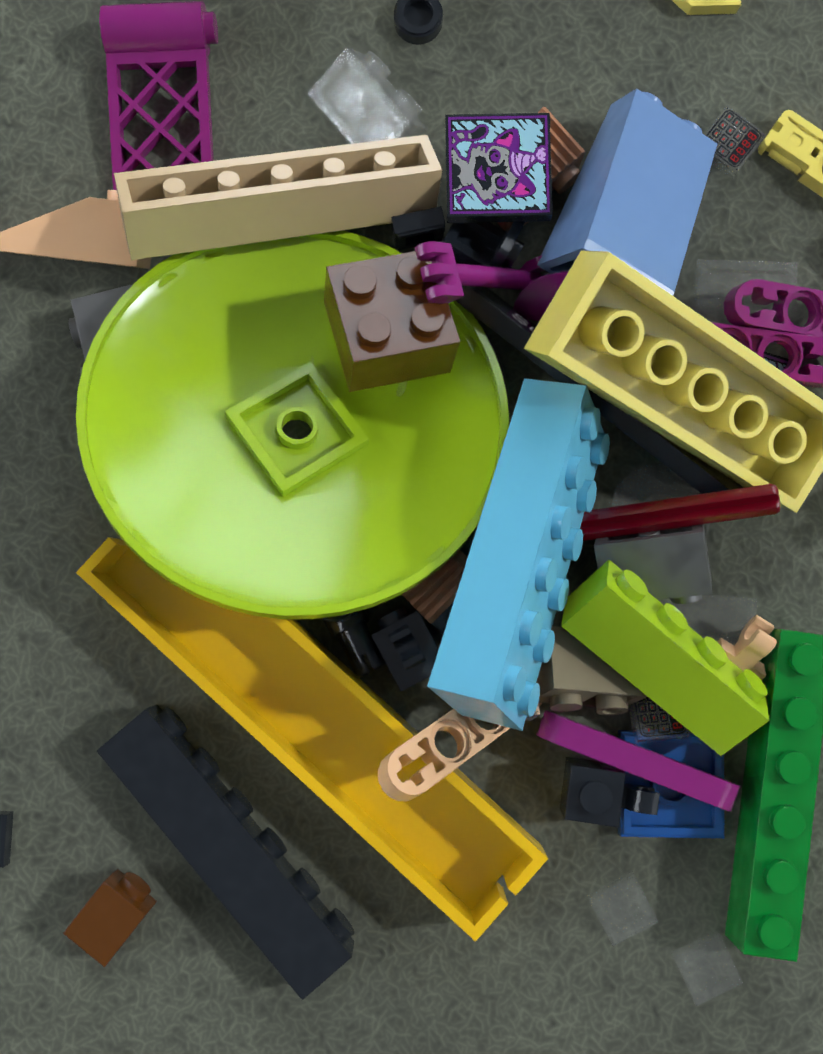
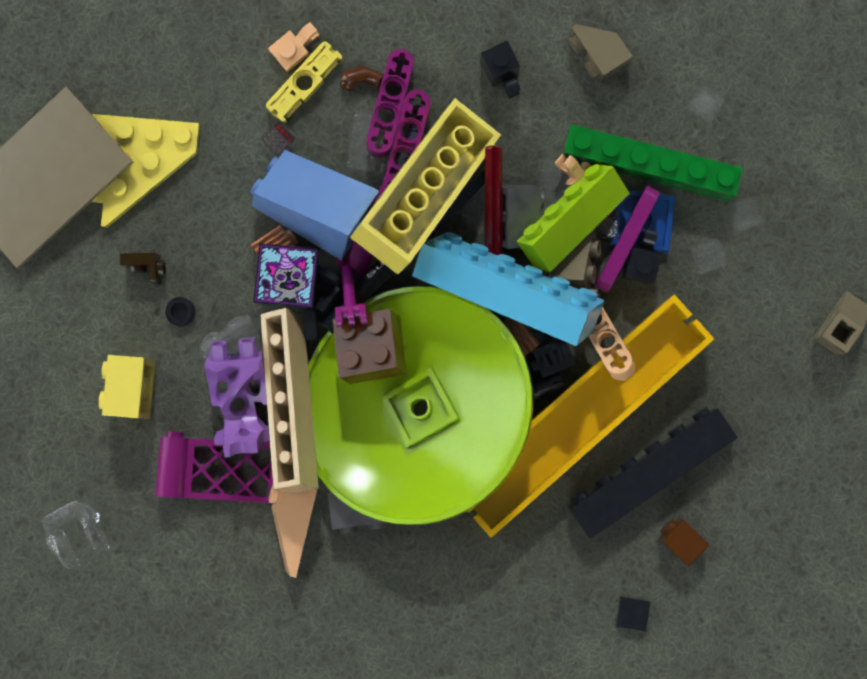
camera: 85 degrees left, 0 degrees up
(313, 118) = (244, 428): none -> medium lavender hips

